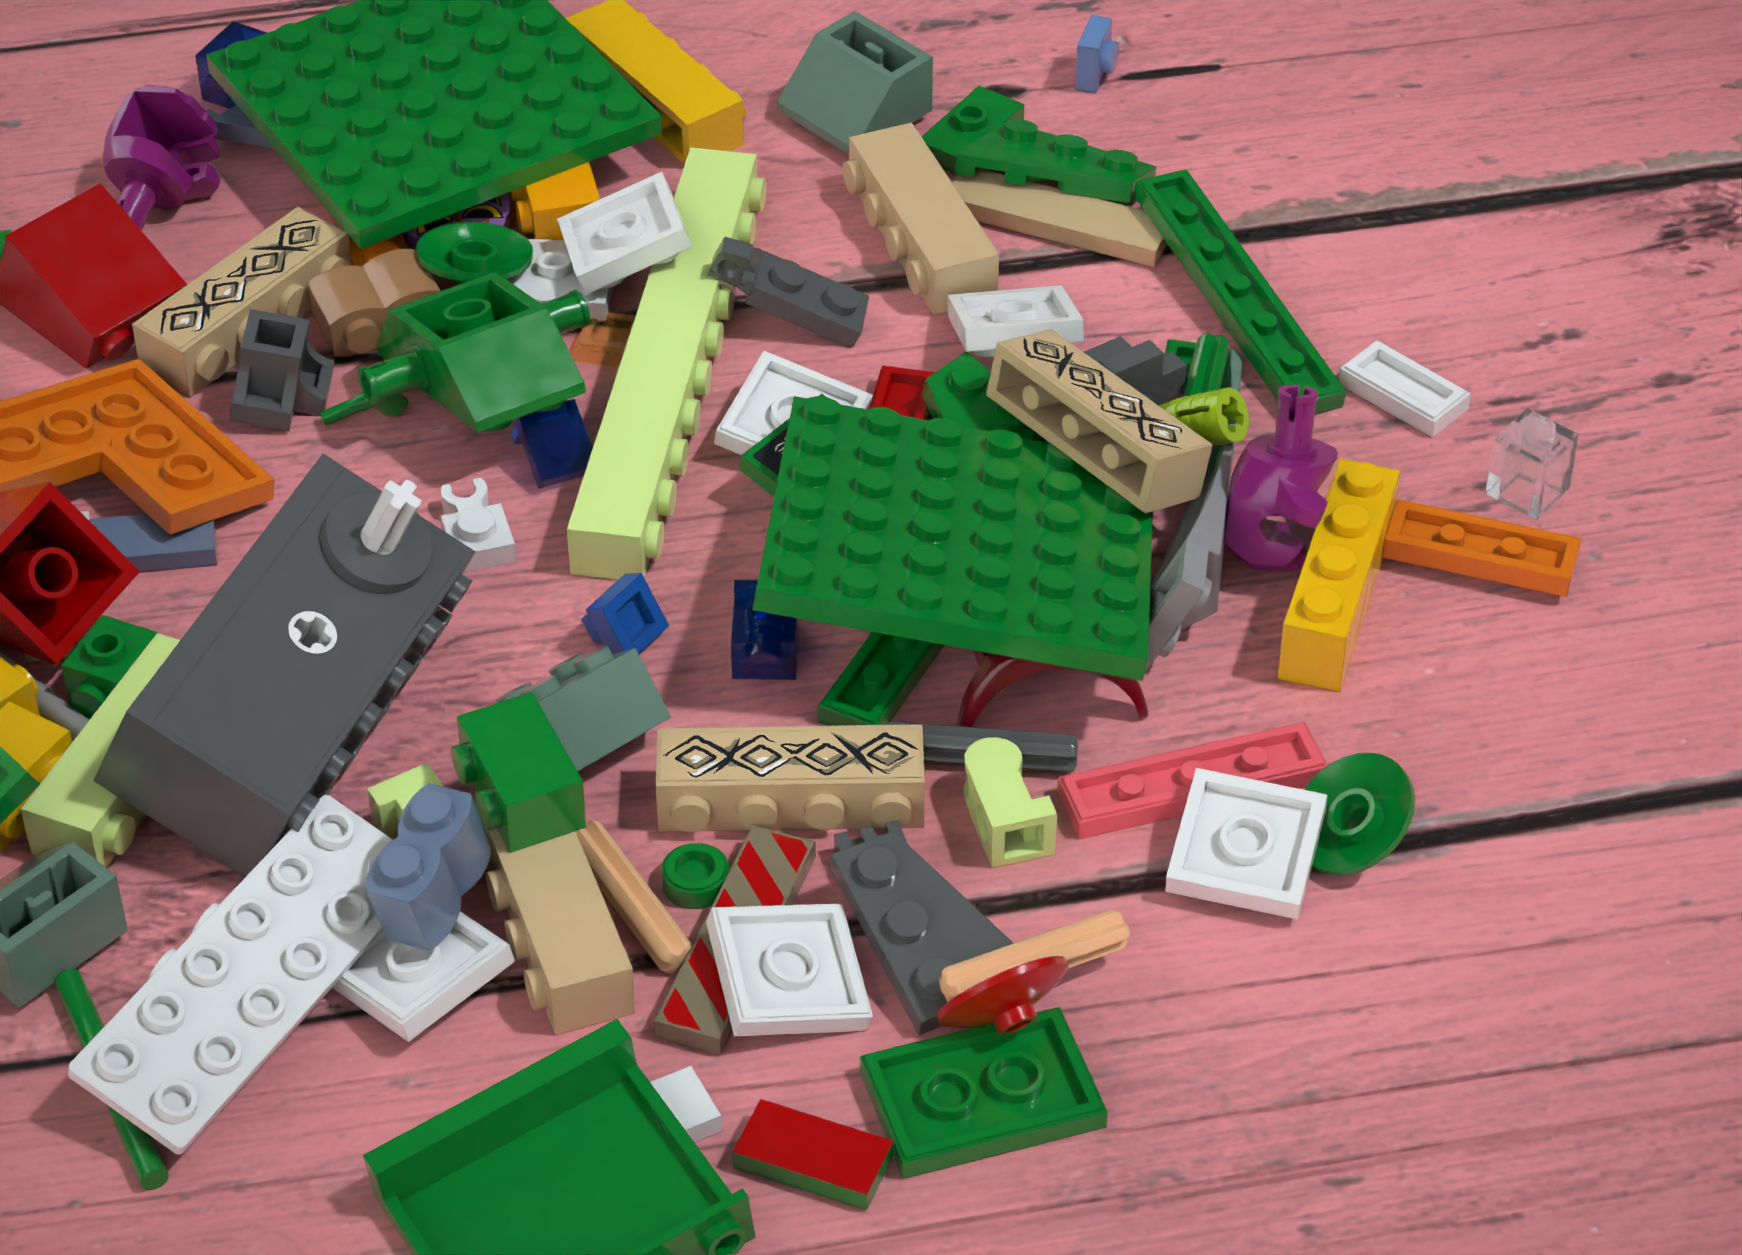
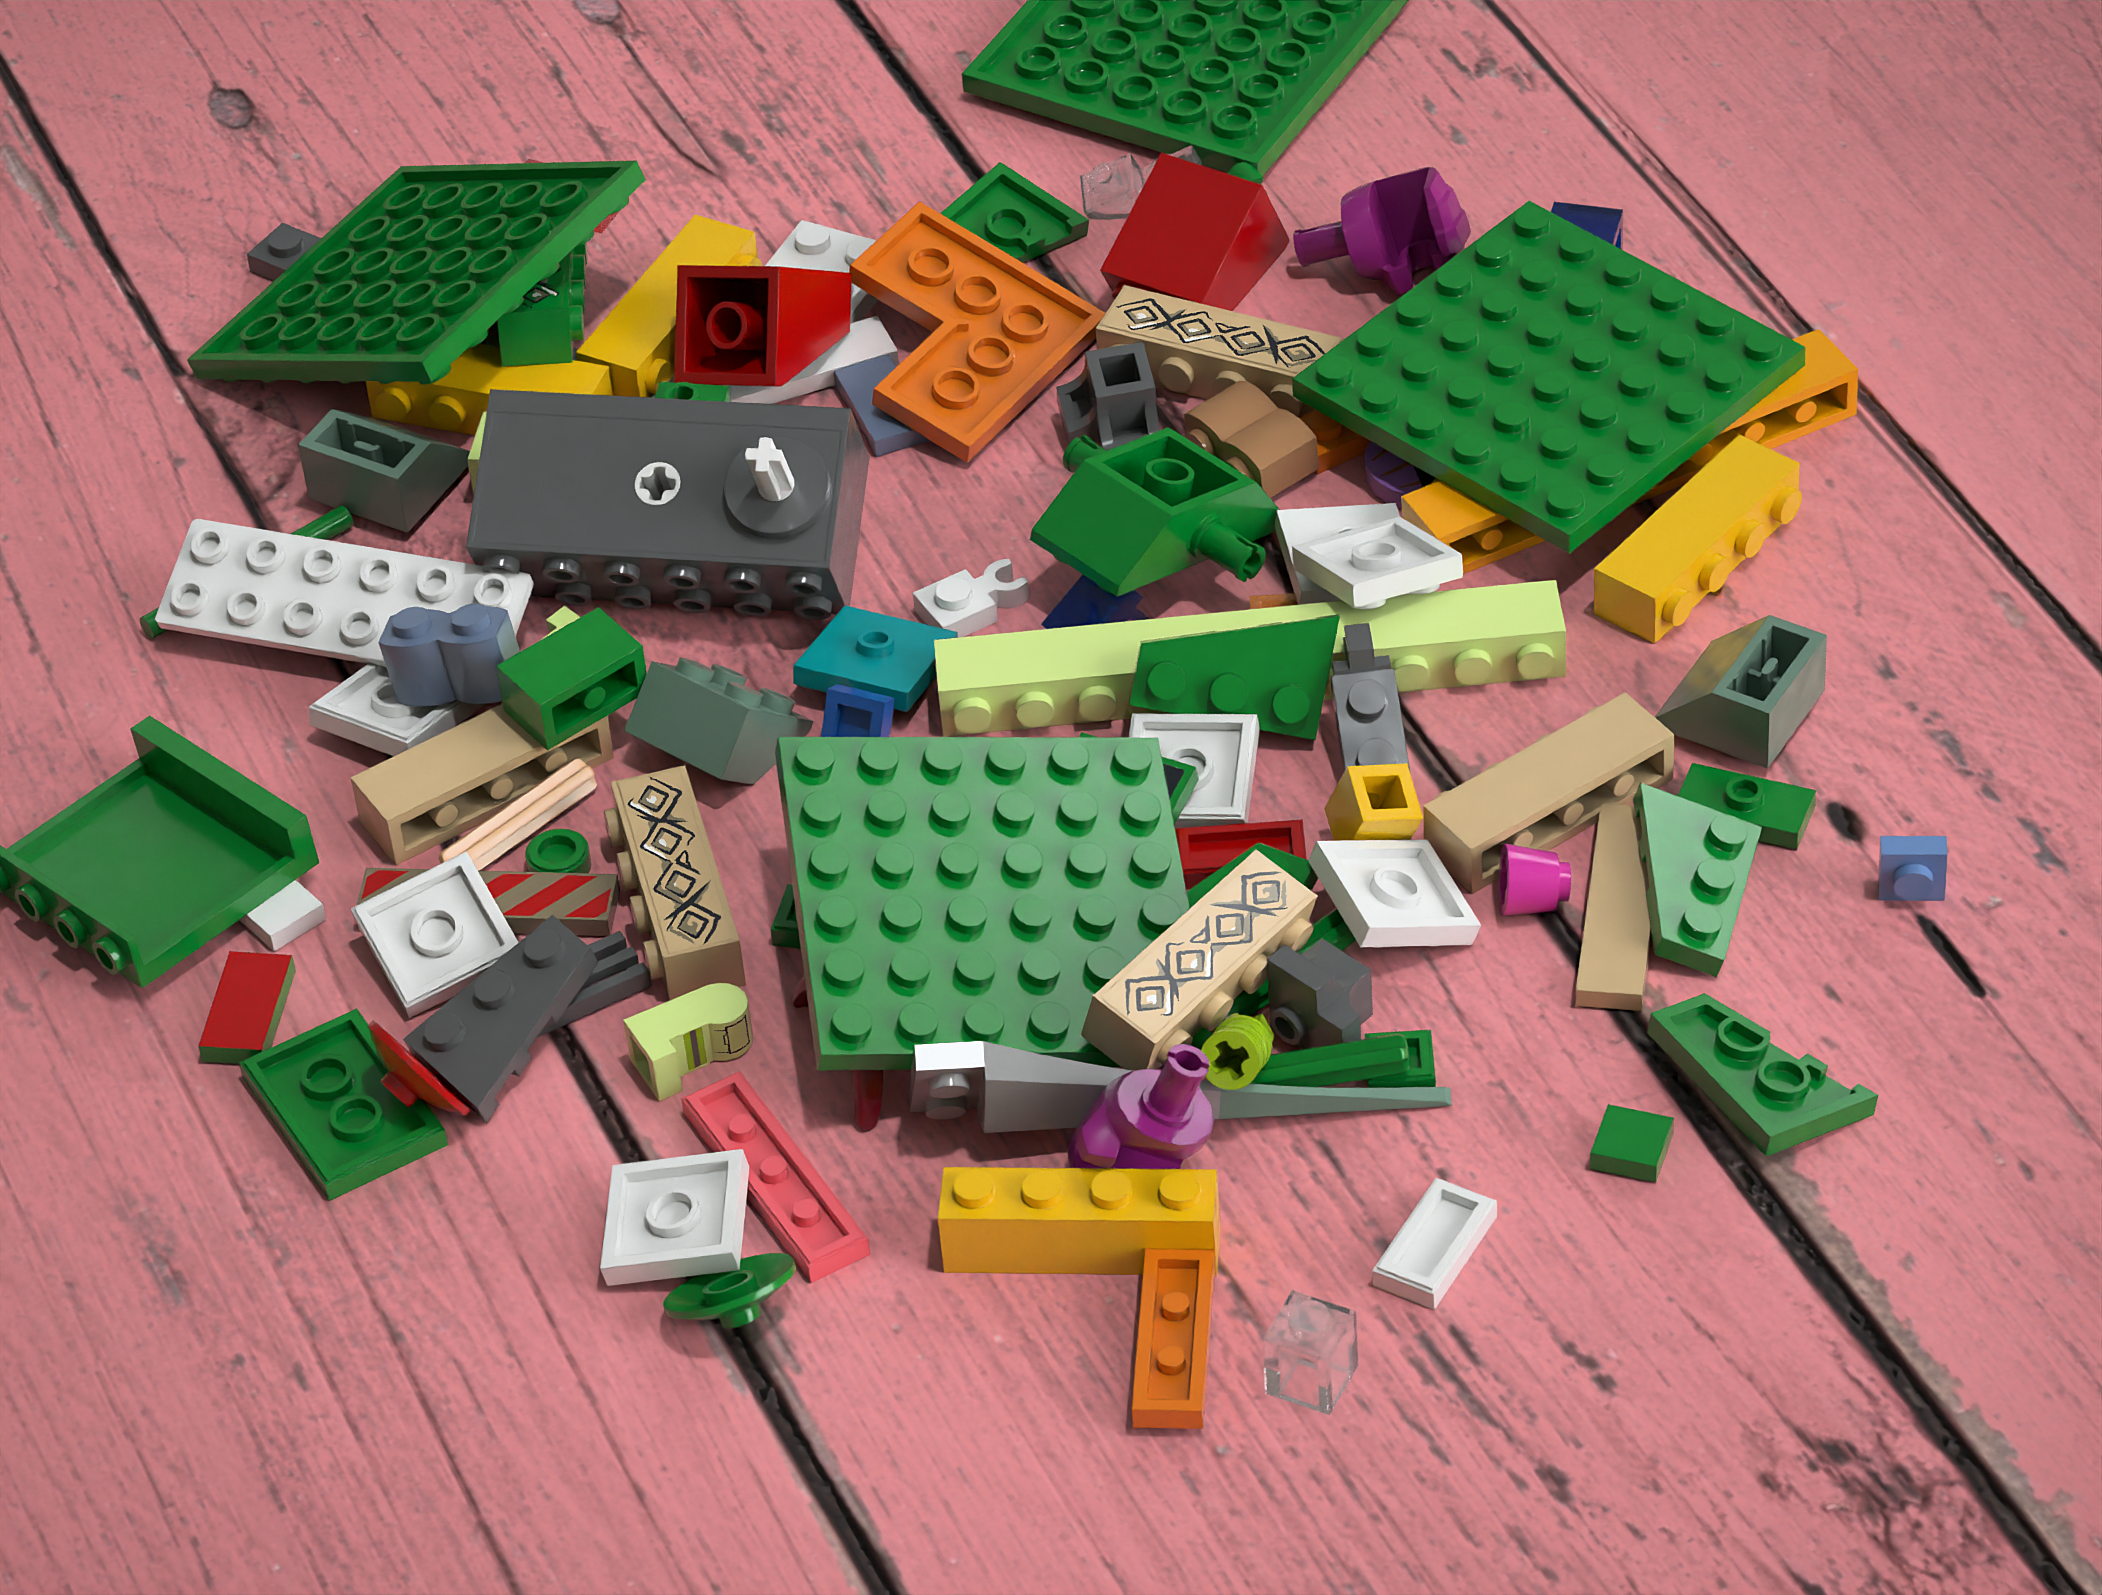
camera: 80 degrees right, 0 degrees up
(474, 250) = (1329, 476): green dish -> none
(534, 595) = (872, 655): none -> teal plate
(718, 344) = (1252, 670): none -> green wing
(917, 307) = (1374, 804): none -> yellow brick
(1023, 251) = (1531, 880): none -> dark pink hat
(1039, 749) = (769, 1011): dark grey axle -> none
(1075, 942) = (474, 1086): light nougat axle -> none
(1236, 288) = (1527, 1070): green tile -> none
(1291, 180) = (1753, 1082): none -> green wing
(1329, 261) = (1632, 1143): none -> green tile

